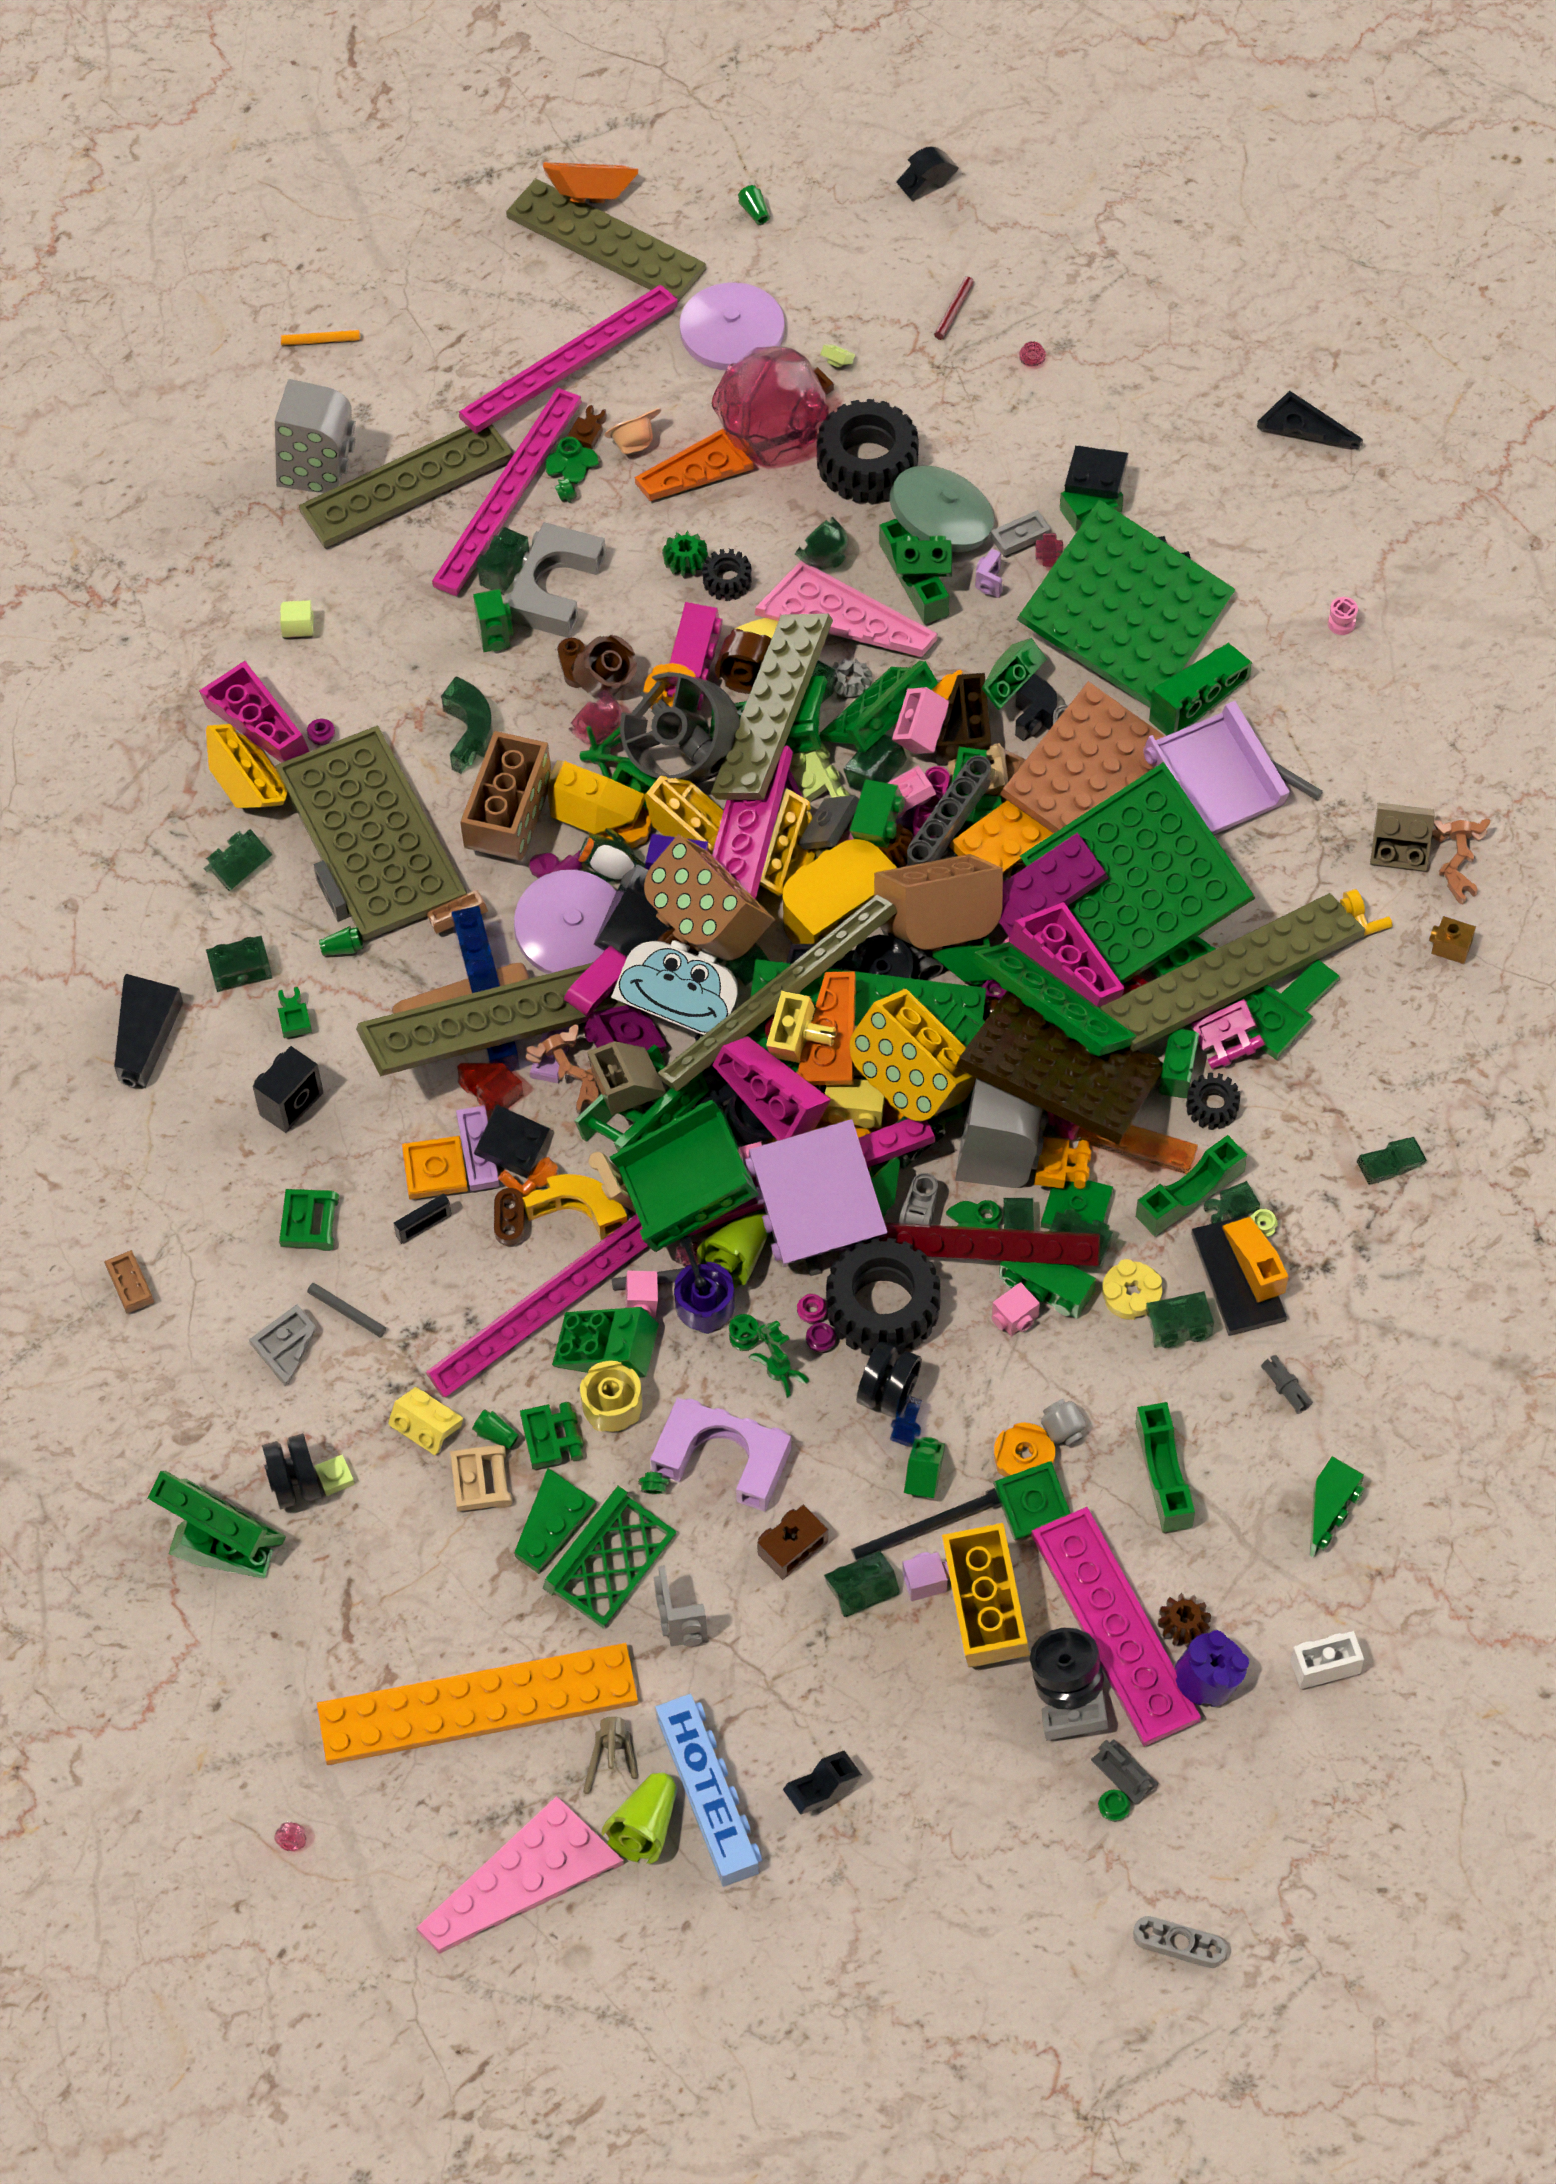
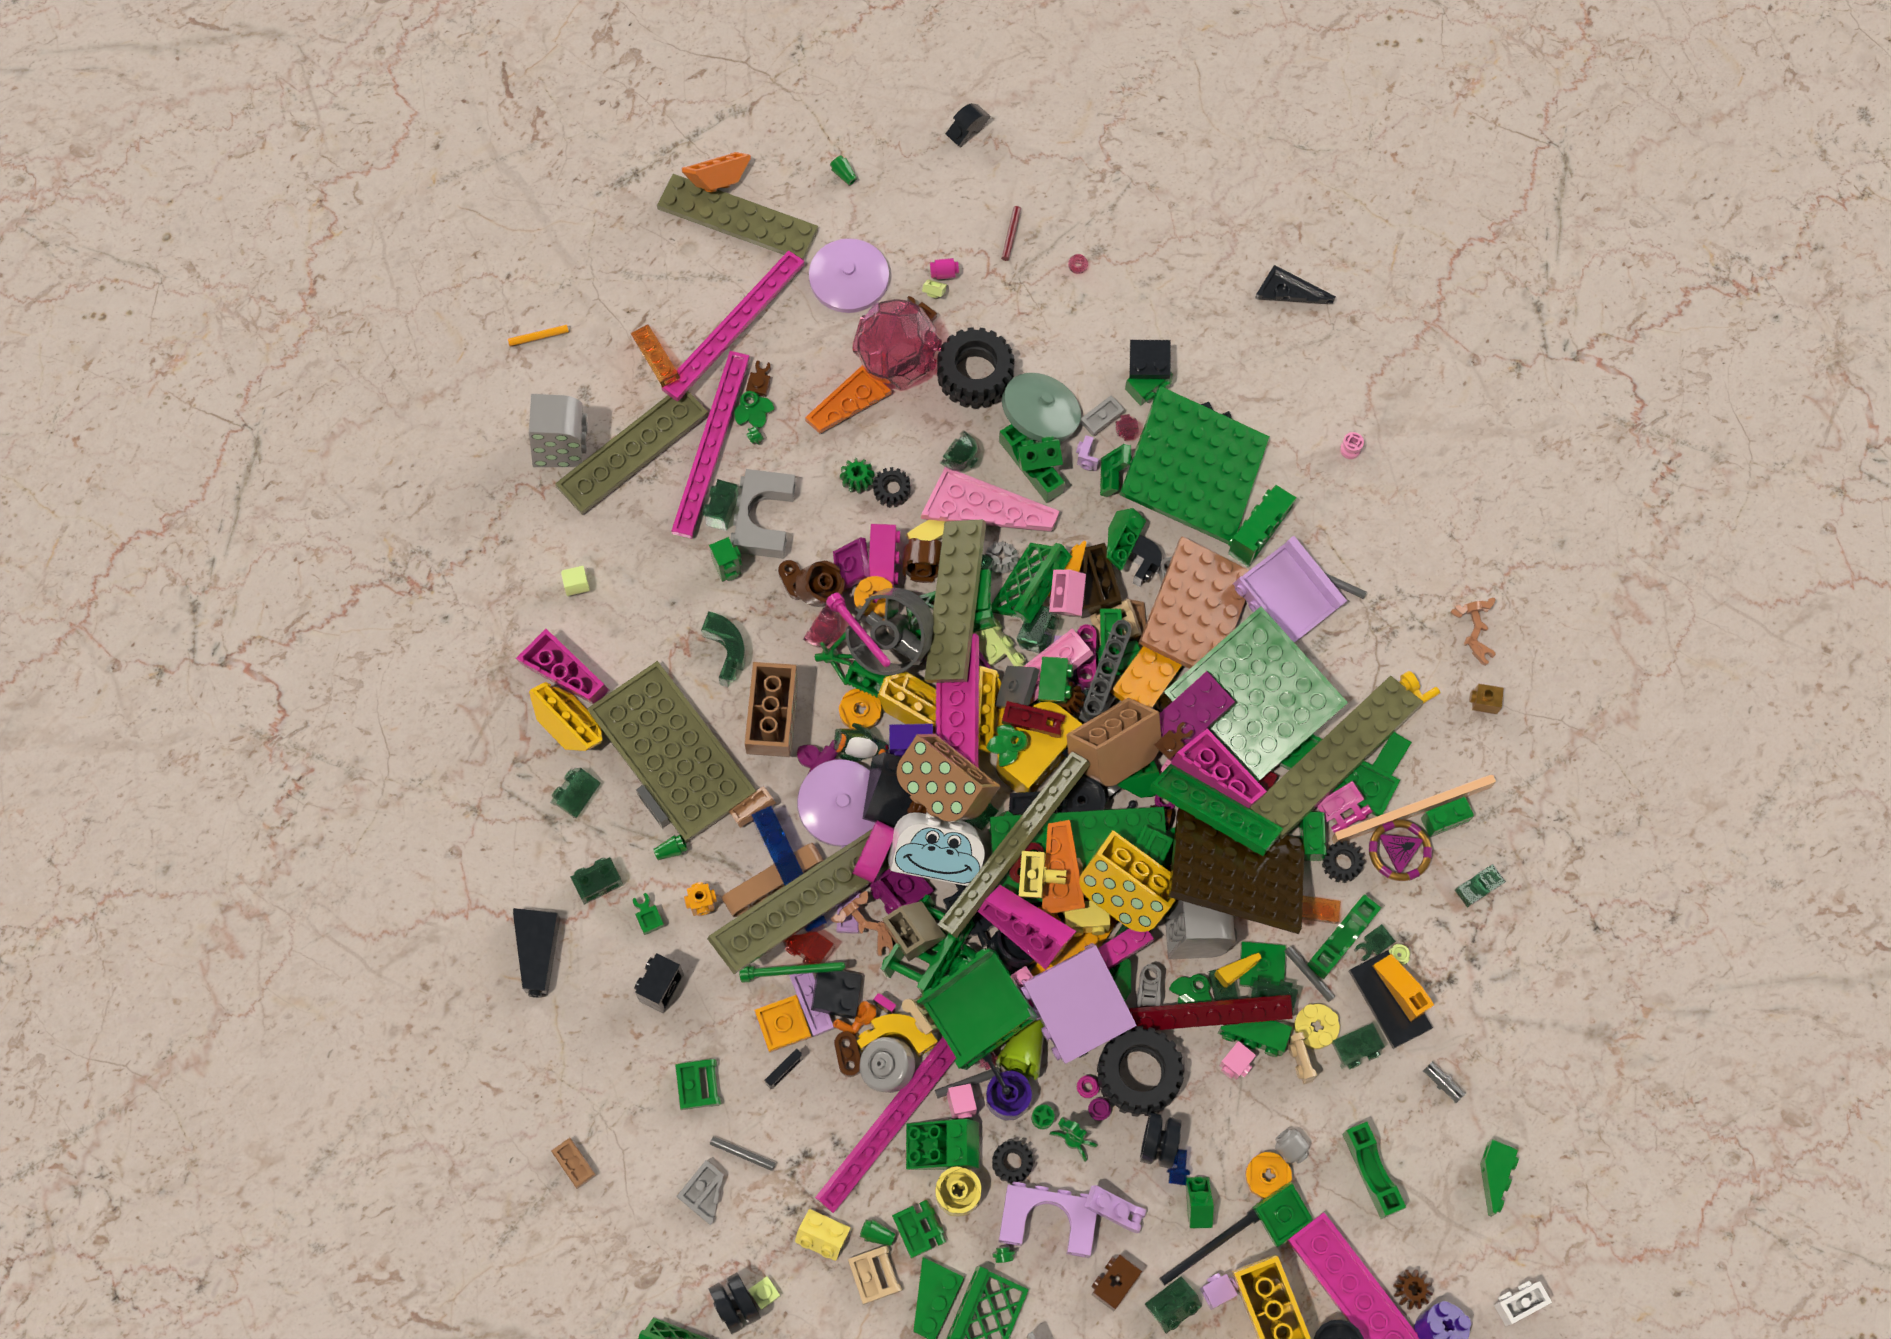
camera: 15 degrees left, 10 degrees up
(320, 737) = (616, 676): magenta plate -> none
(363, 1003) = (704, 905): none -> light orange brick
(404, 1101) = (750, 972): none -> green piece
(460, 377) = (655, 355): none -> clear orange plate
(555, 1233) = (887, 1065): none -> light grey wheel
(569, 1163) = (884, 1004): none -> dark pink tile
(591, 799) = (832, 697): yellow wedge -> none
(620, 687) = (837, 604): none -> dark pink piece
(633, 434) = (797, 383): light nougat piece -> none
(653, 648) = (852, 562): none -> magenta plate
(691, 1361) = (1012, 1175): none -> black tyre
(798, 878) = (1004, 744): none -> green plate
(811, 1452) = (1114, 1209): none -> lavender plate
(838, 854) = (1033, 719): none -> dark red plate
(855, 334) = (944, 268): none -> dark pink brick
(1014, 909) = (1172, 743): none -> reddish brown plate
(1017, 593) = (1110, 467): none -> green plate
(1038, 1197) = (1233, 971): none -> yellow slope
(1052, 1163) = (1244, 943): light orange plate -> none
(1098, 1310) = (1298, 1050): none -> tan plate
(1136, 1225) = (1307, 971): none -> dark grey bar
(1292, 1097) = (1400, 850): none -> piece
(1325, 1054) = (1414, 809): none -> light nougat tile
(1365, 1069) = (1447, 817): none -> green brick
(1402, 836) = (1433, 619): dark tan slope -> none

